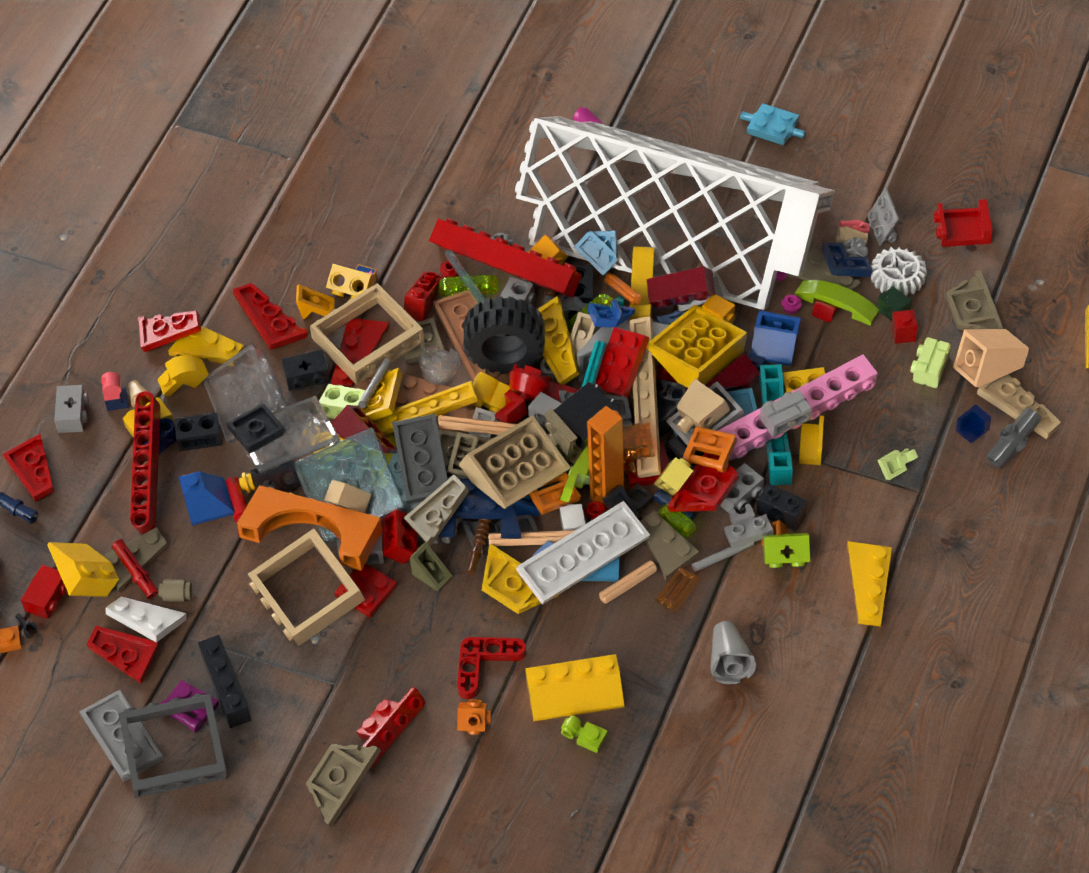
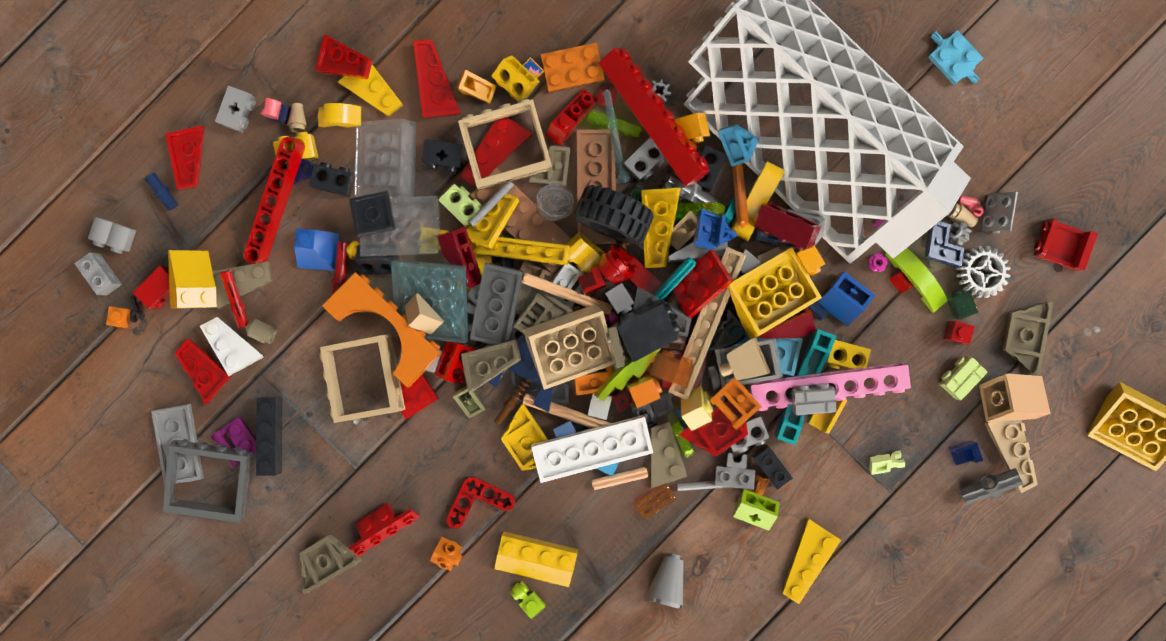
camera: 20 degrees right, 35 degrees up
(404, 259) = (572, 67): none -> orange plate

